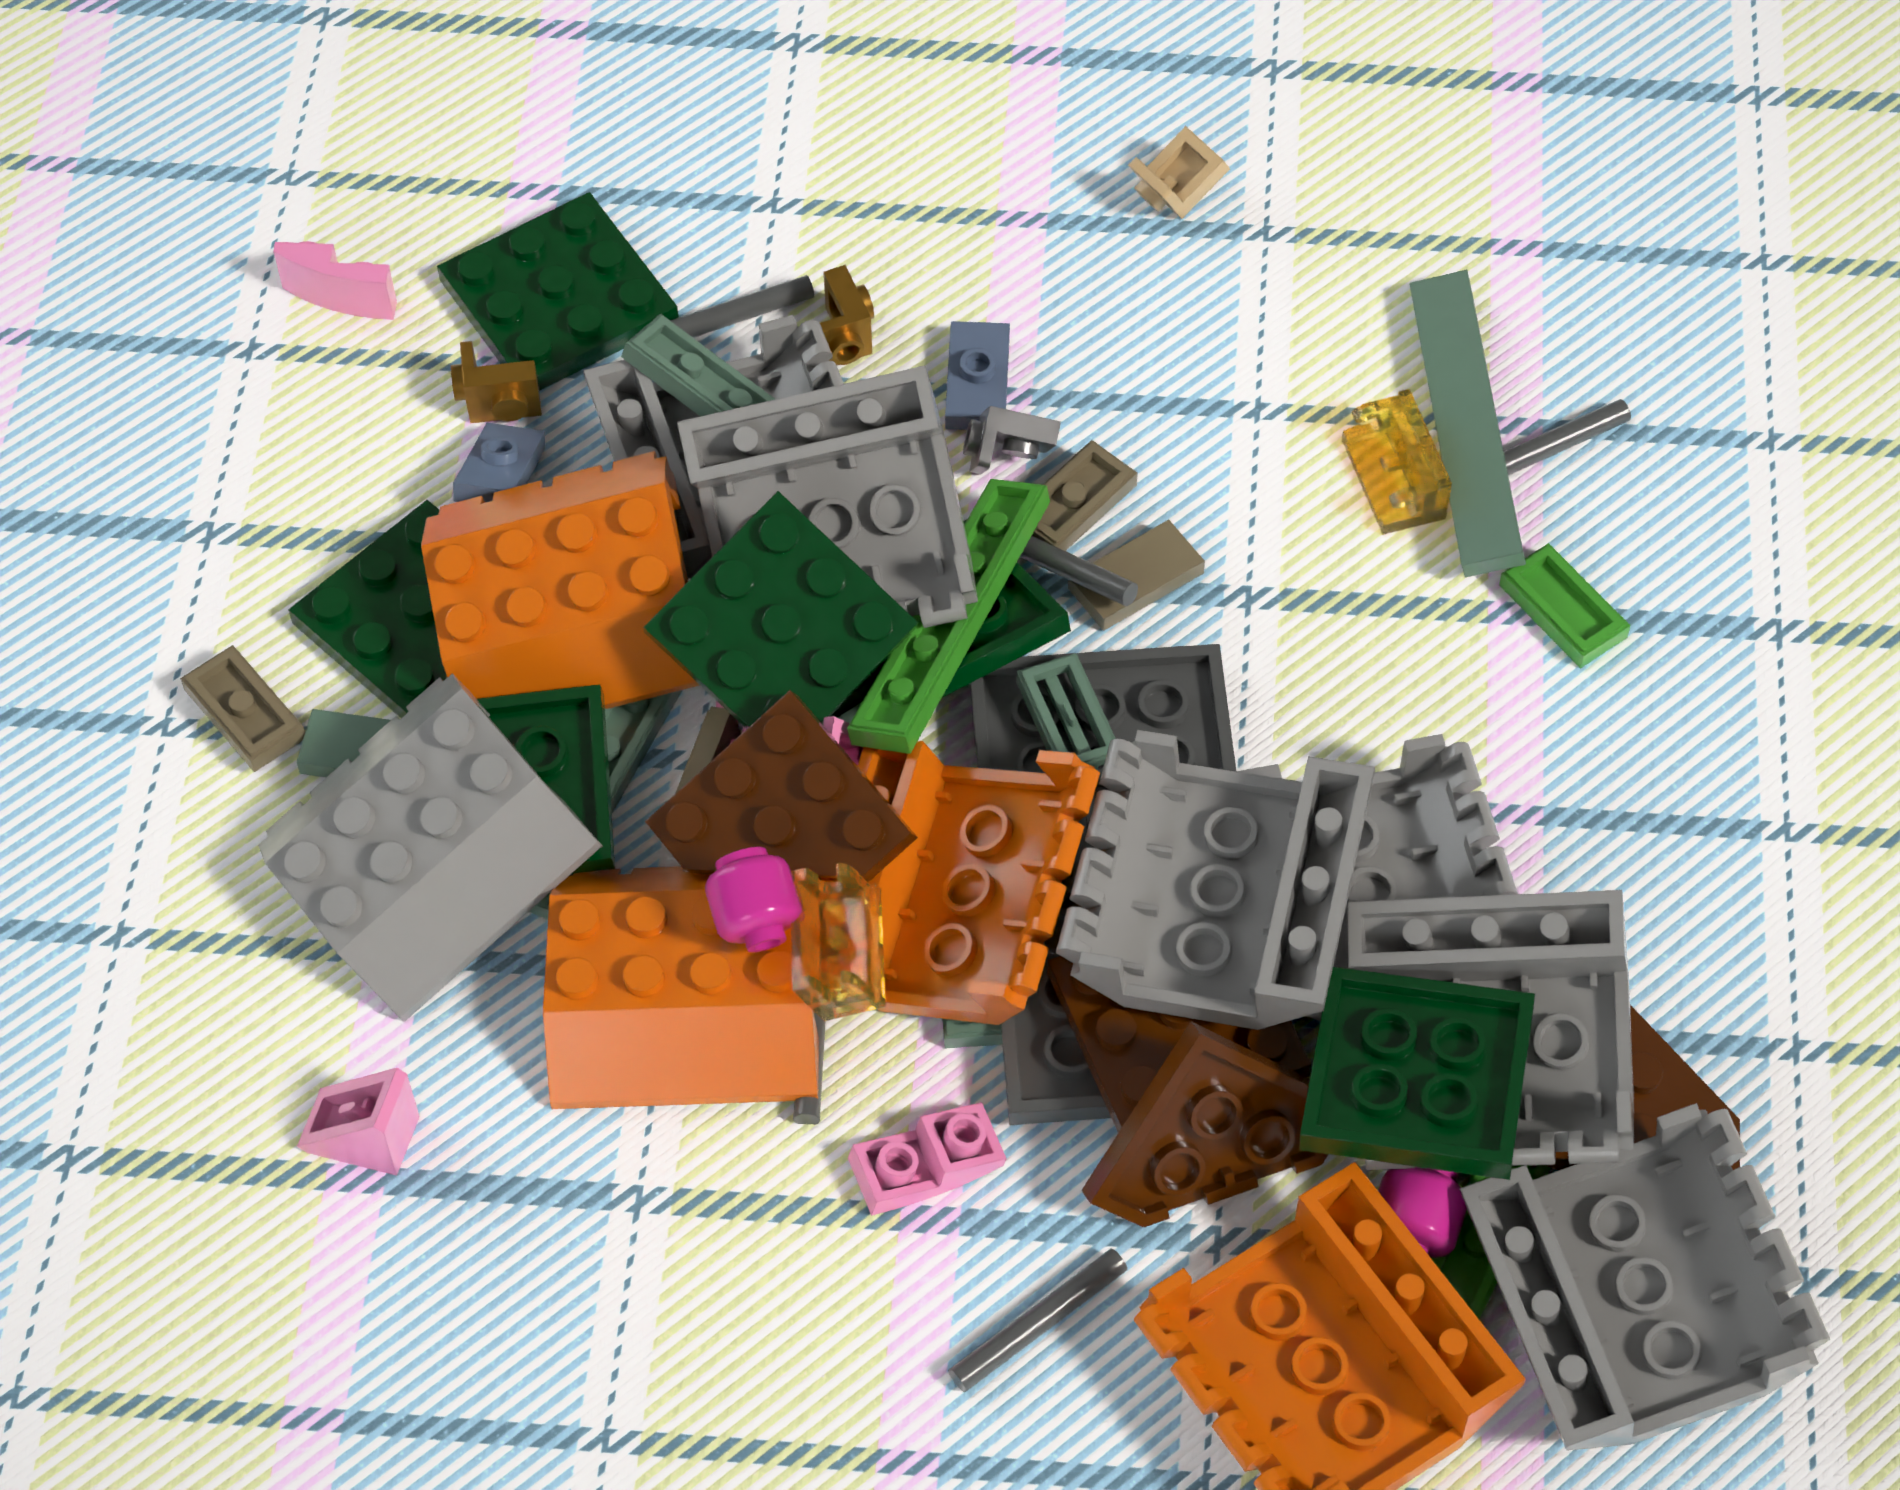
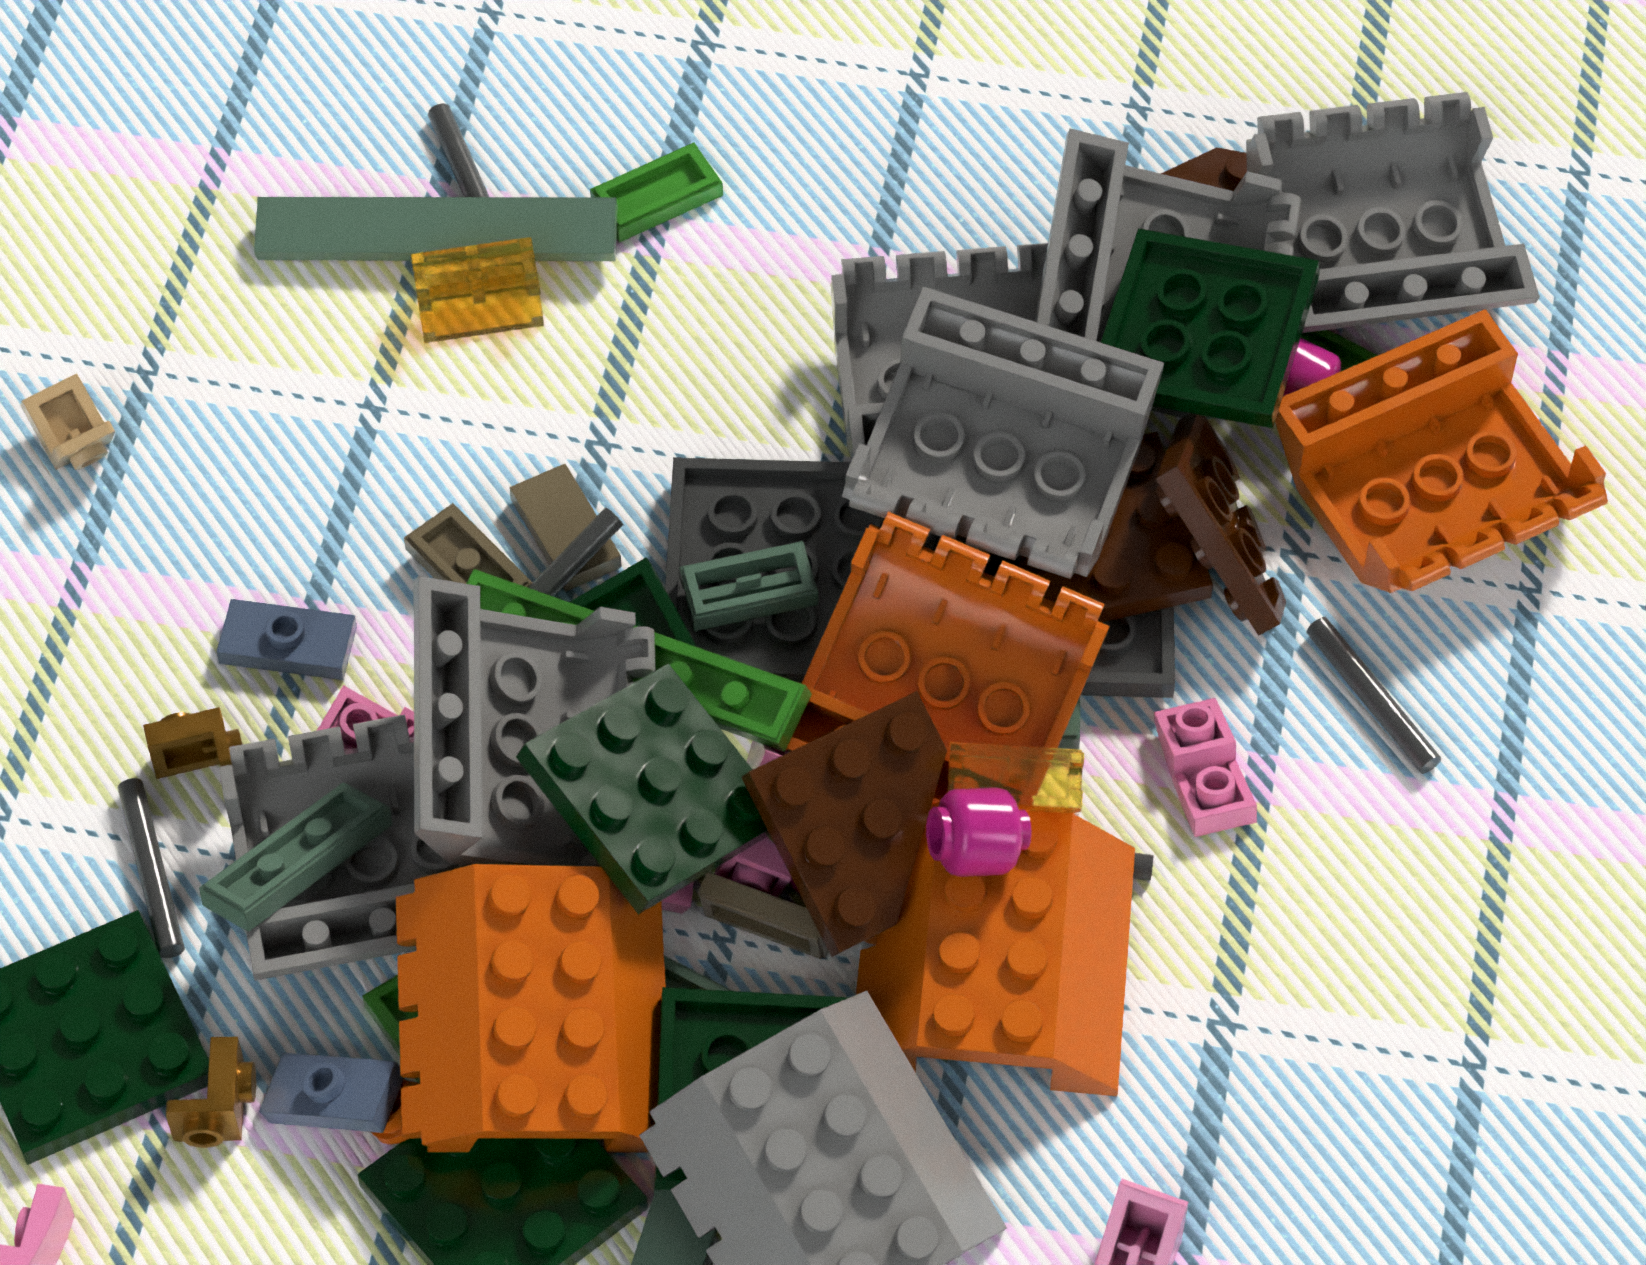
camera: 85 degrees left, 0 degrees up
(1019, 433) = (383, 614): flat silver bracket -> none

